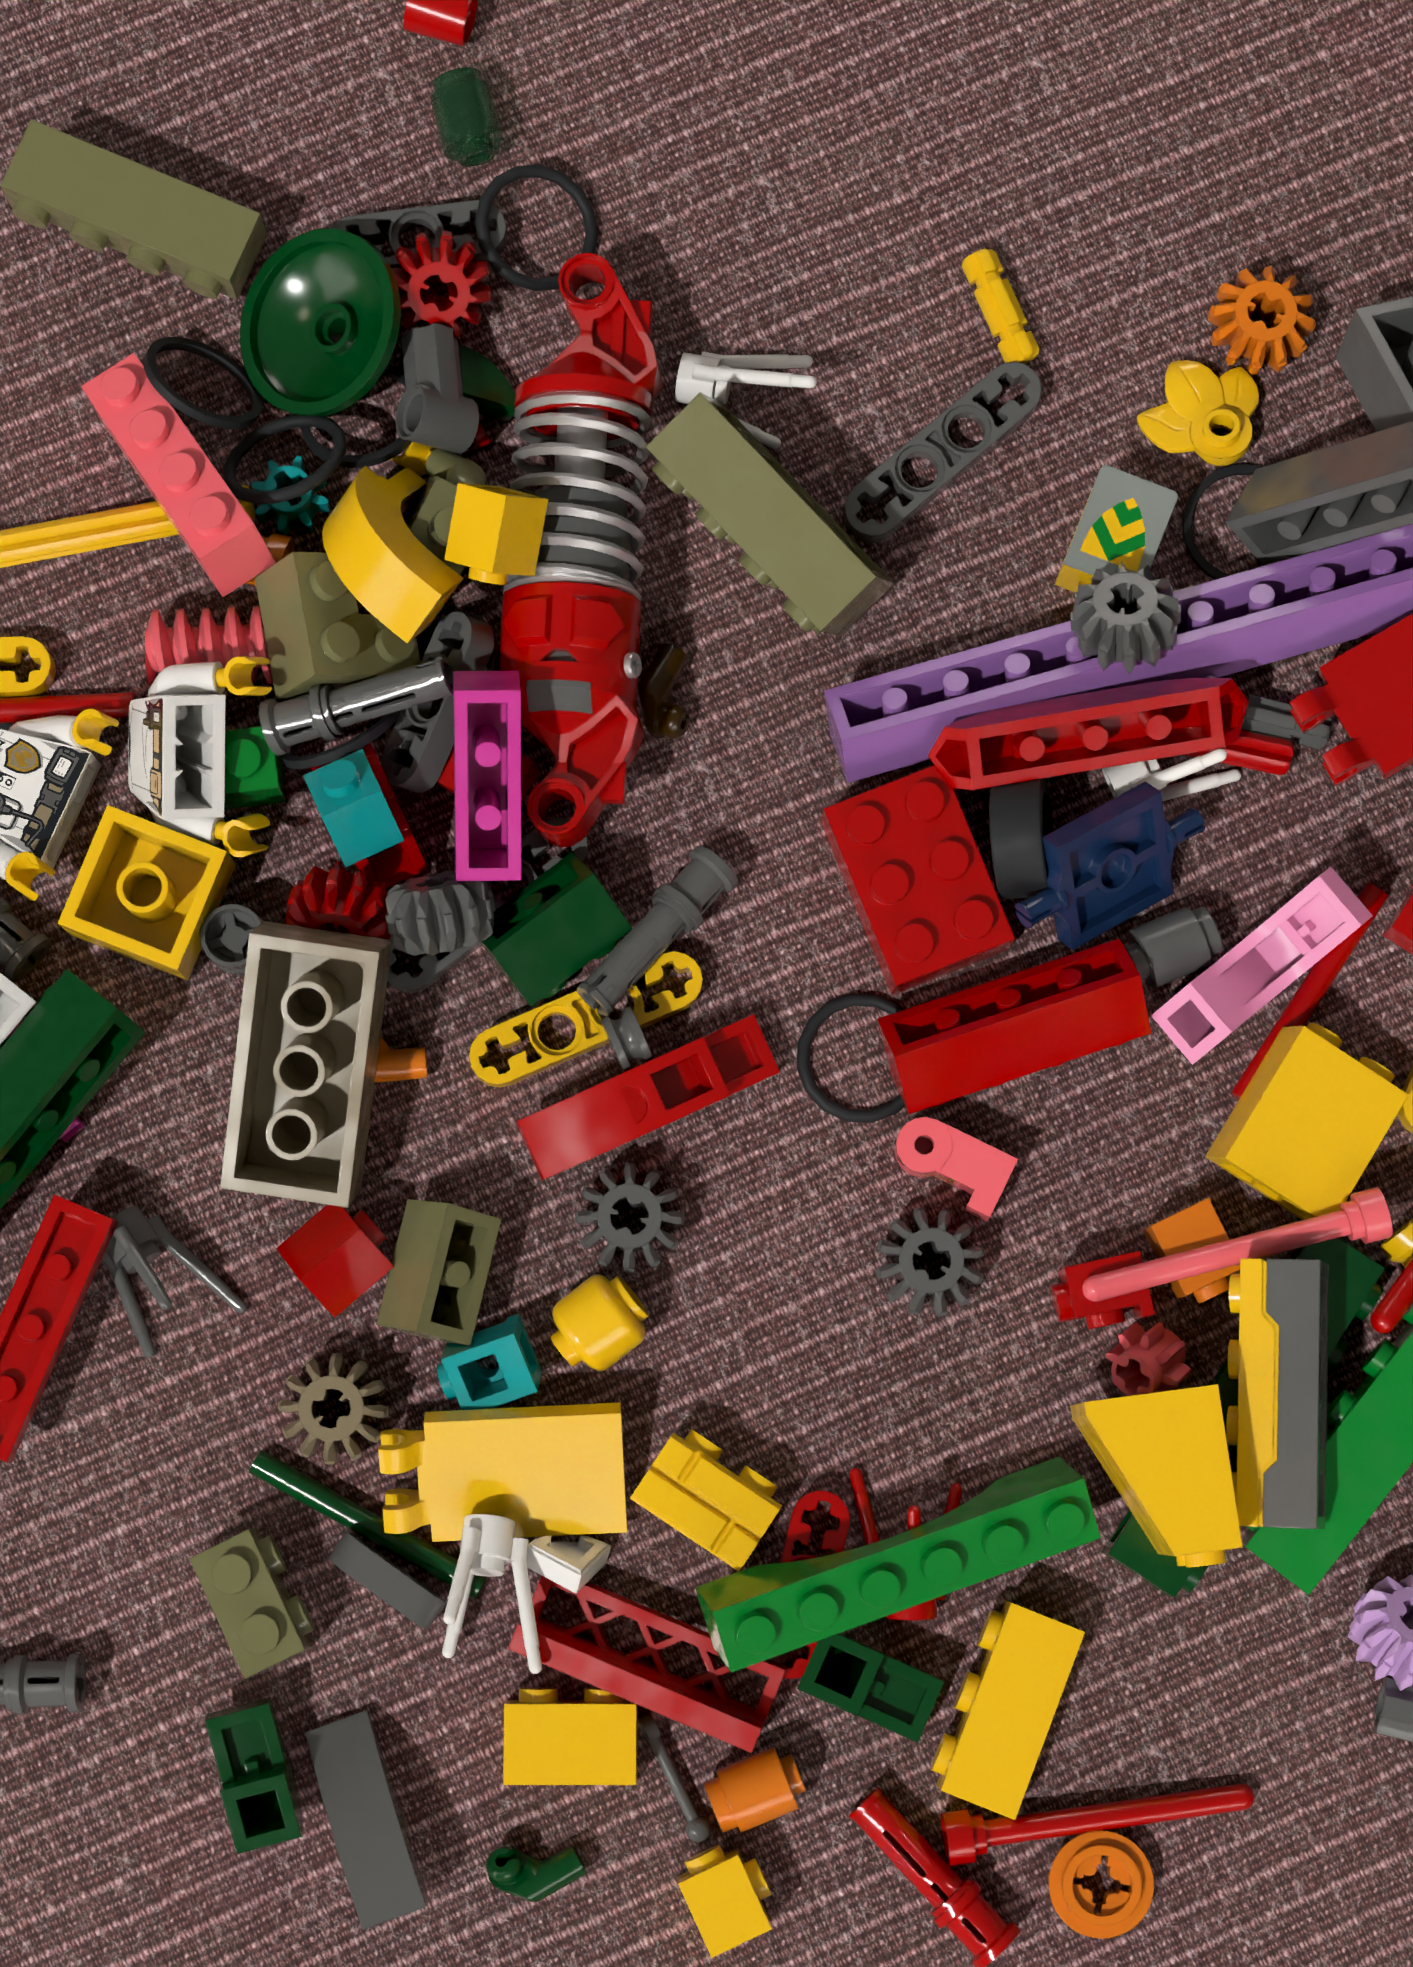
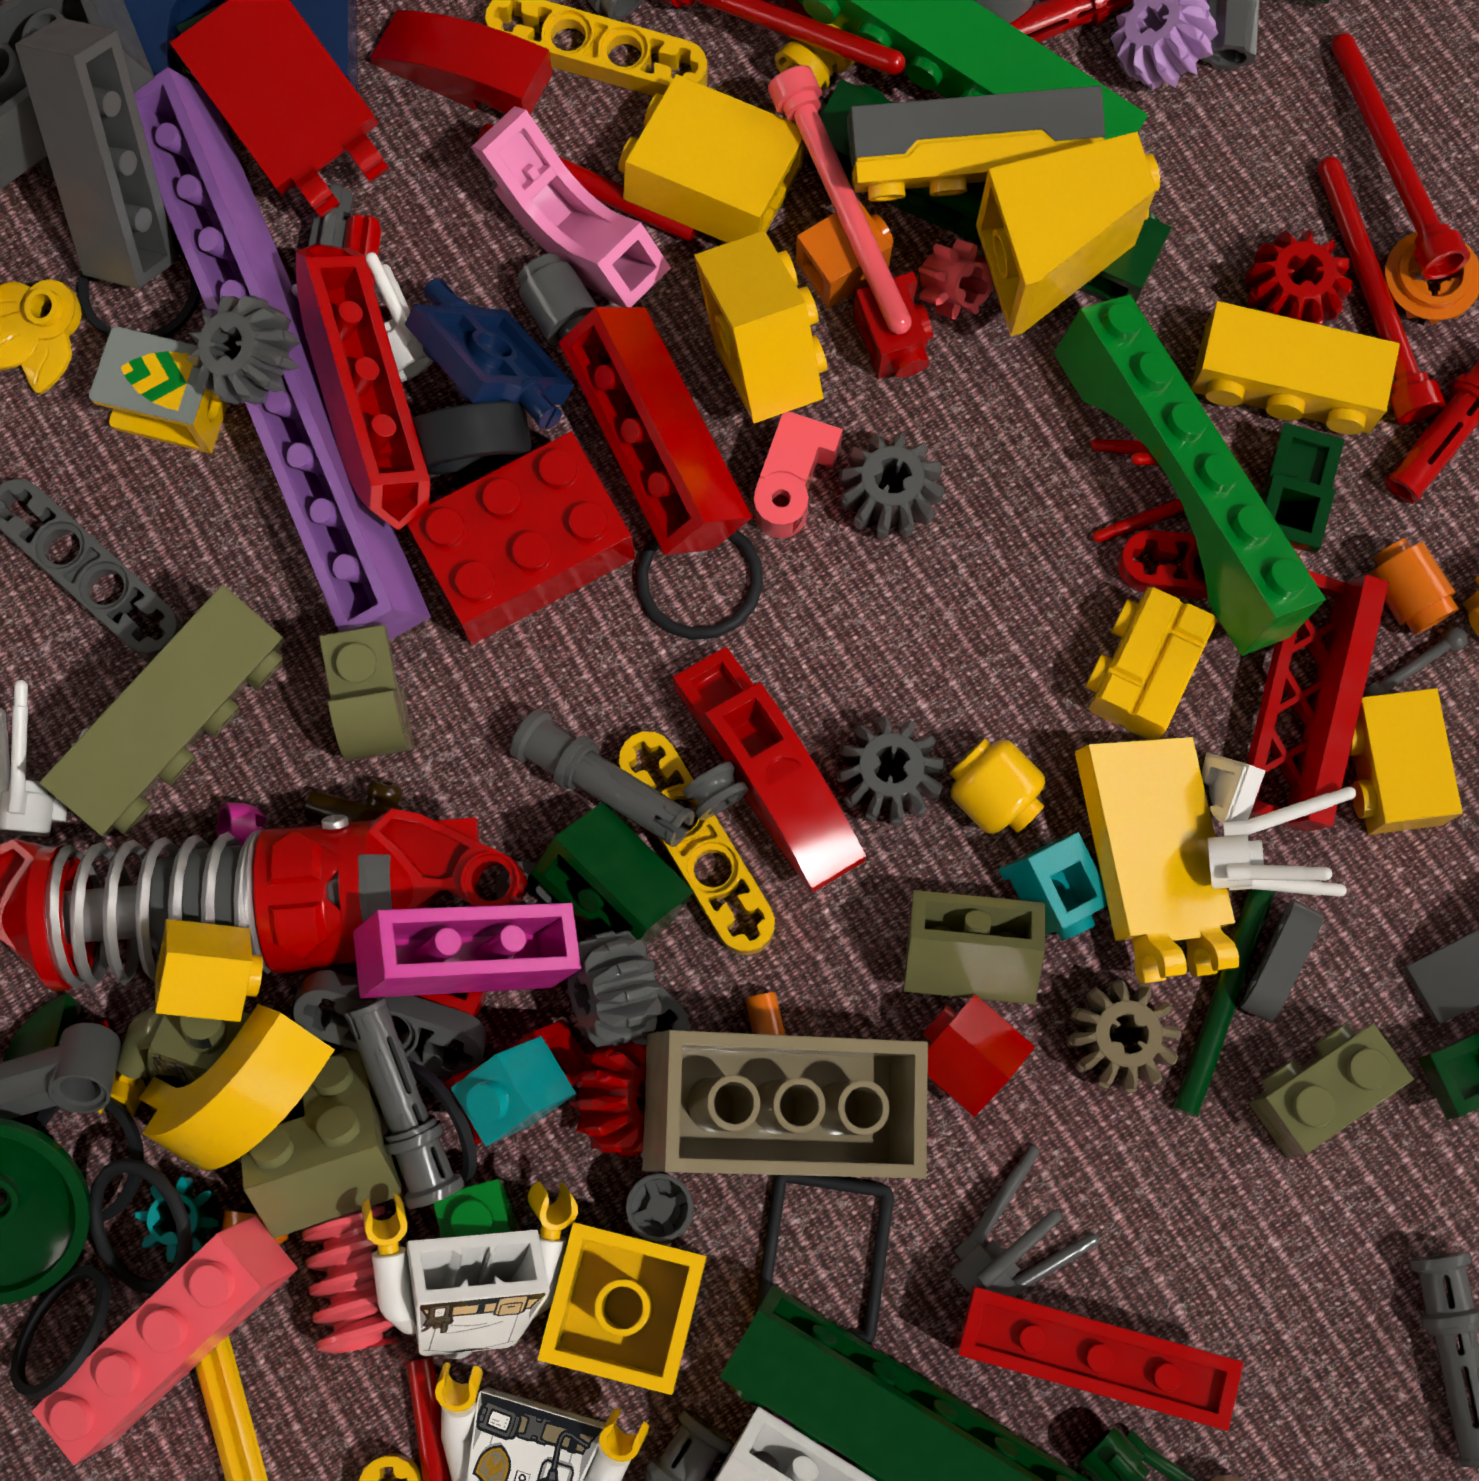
camera: 95 degrees left, 5 degrees down
(151, 1140) = (880, 1248): none -> black piece
(660, 578) = (239, 820): none -> dark pink hinge
(758, 710) = (365, 700): none -> olive brick
(1104, 1144) = (762, 325): none -> yellow brick
(1122, 1886) = (1438, 248): none -> red piece
(1129, 1732) = (1302, 260): none -> red gear

